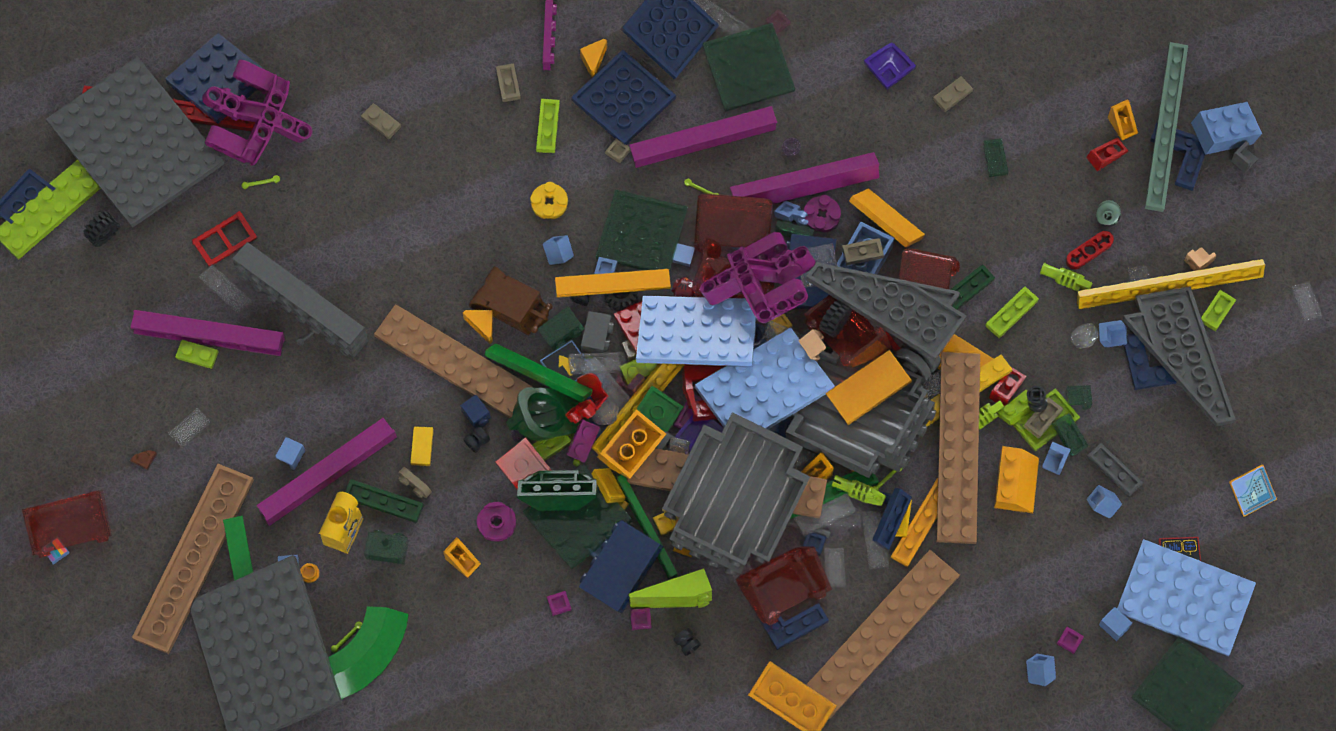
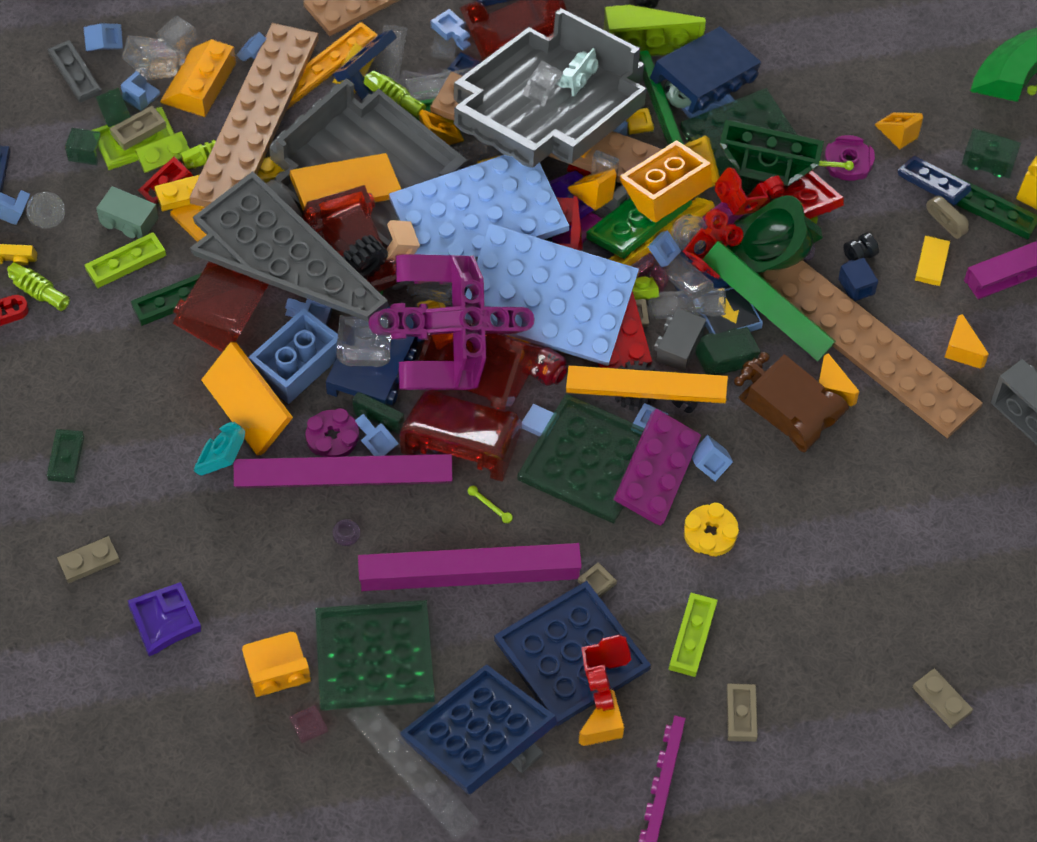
camera: 170 degrees left, 10 degrees down
(392, 374) = (965, 345): none -> light orange slope
(428, 510) = (934, 180): none -> dark blue tile
(495, 506) = (848, 165): none -> lime hinge
(558, 458) = (730, 192): none -> red piece
(559, 603) = (786, 65): magenta tile -> none
(593, 232) = (657, 467): none -> magenta plate
(597, 60) = (609, 653): none -> red piece
(622, 394) = (664, 248): none -> medium blue plate
(684, 429) = (595, 188): none -> light orange slope
(715, 528) = (579, 71): none -> light aqua hinge
(741, 492) = (543, 83): none -> clear brick
(808, 48) = (276, 664): none -> light orange bracket
(834, 567) = (451, 26): none -> medium blue plate
(863, 251) = (298, 339): dark tan plate -> none
(891, 178) = (222, 450): none -> teal tile
(985, 517) = (251, 47): none -> medium blue plate
(1024, 347) = (127, 213): none -> sand green brick
(1037, 399) = (139, 140): black wheel -> none
(1047, 512) = (178, 34): none -> clear brick
(1053, 478) = (152, 57): none -> clear torso

